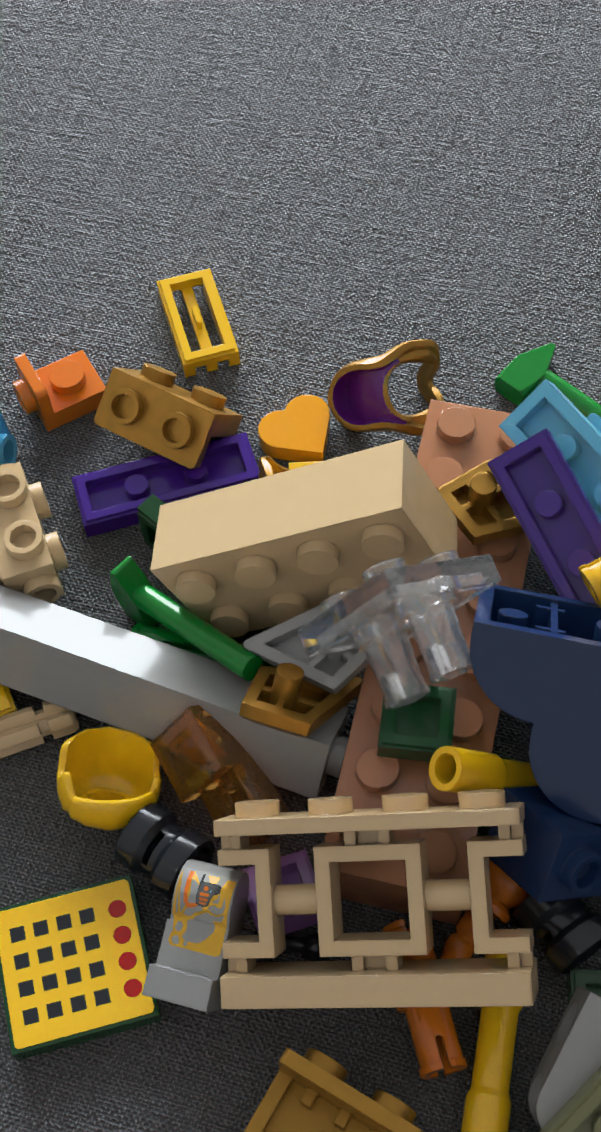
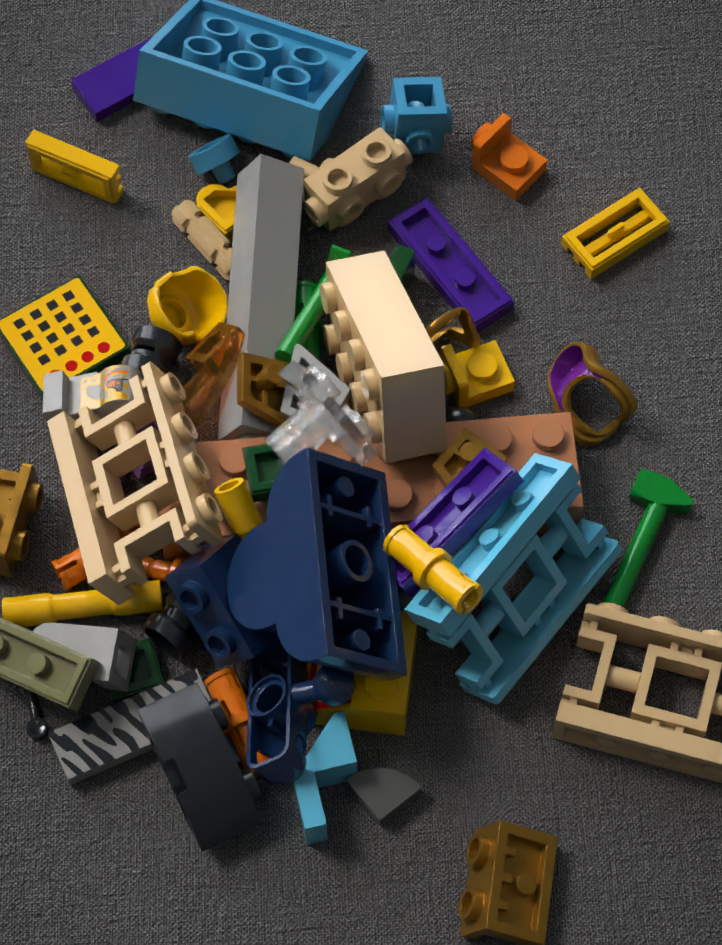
camera: 70 degrees right, 5 degrees up
(163, 416) = (505, 238): pearl gold bracket -> none
(298, 431) = (532, 339): light orange tile -> none

